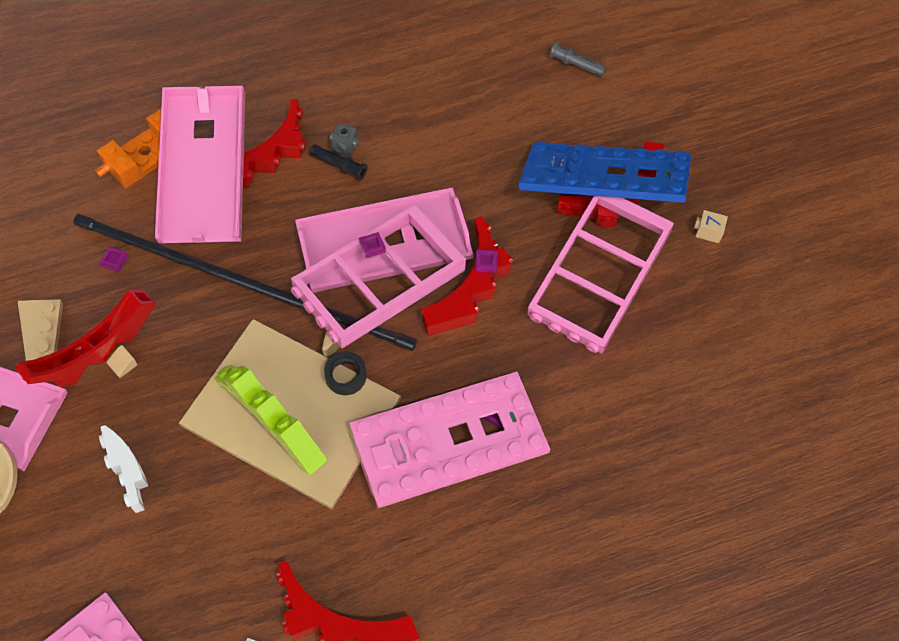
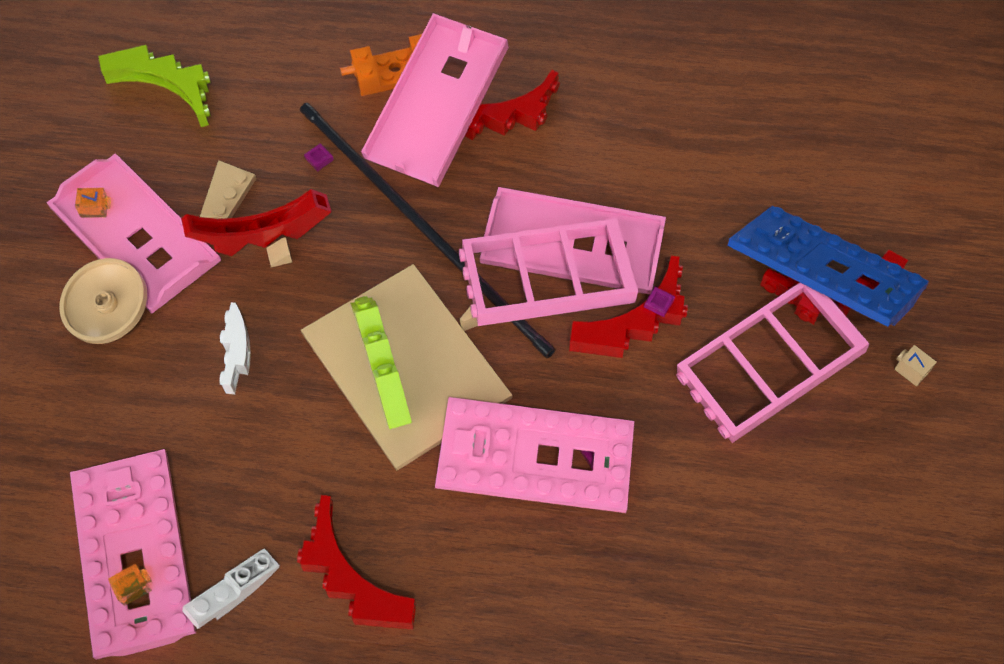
camera: 30 degrees right, 0 degrees up
(341, 358) = (470, 334): black tyre -> none
(344, 140) = (584, 129): dark grey brick -> none
(346, 164) = (573, 153): black pin -> none
(372, 245) = (554, 240): magenta tile -> none
(570, 57) = (858, 134): dark grey pin -> none

